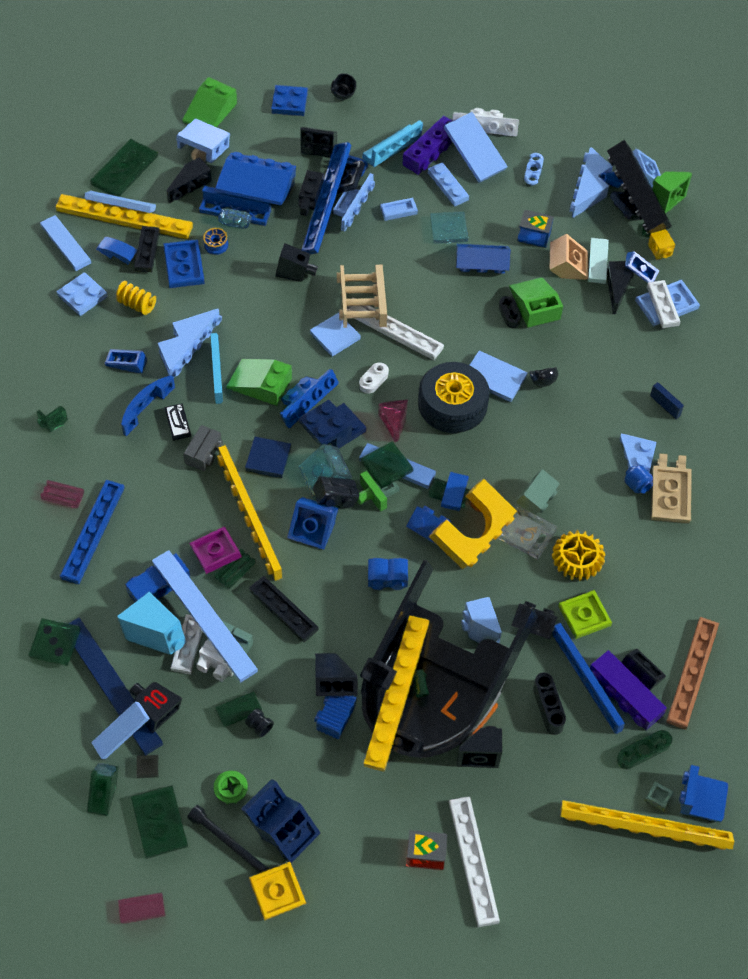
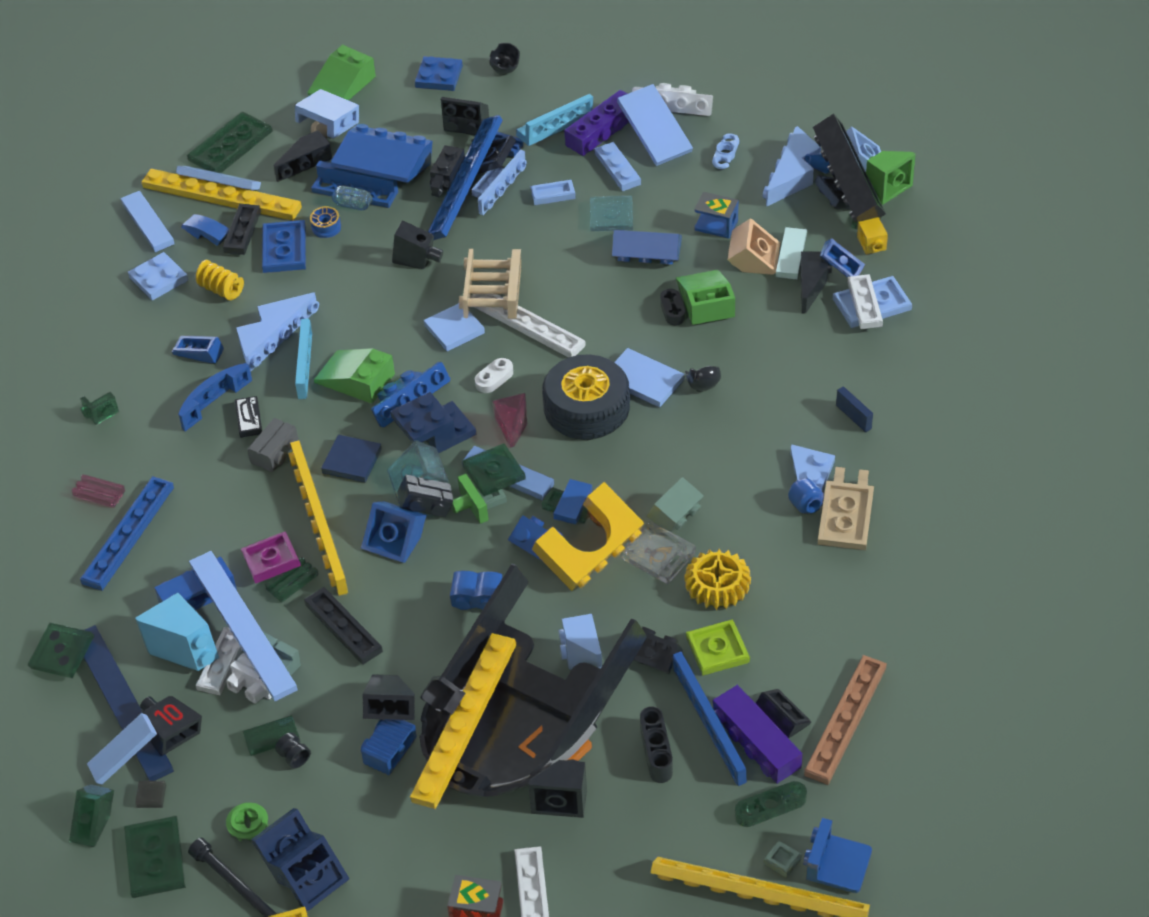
camera: 10 degrees right, 10 degrees down
(420, 683) = (496, 713): clear green pin -> none

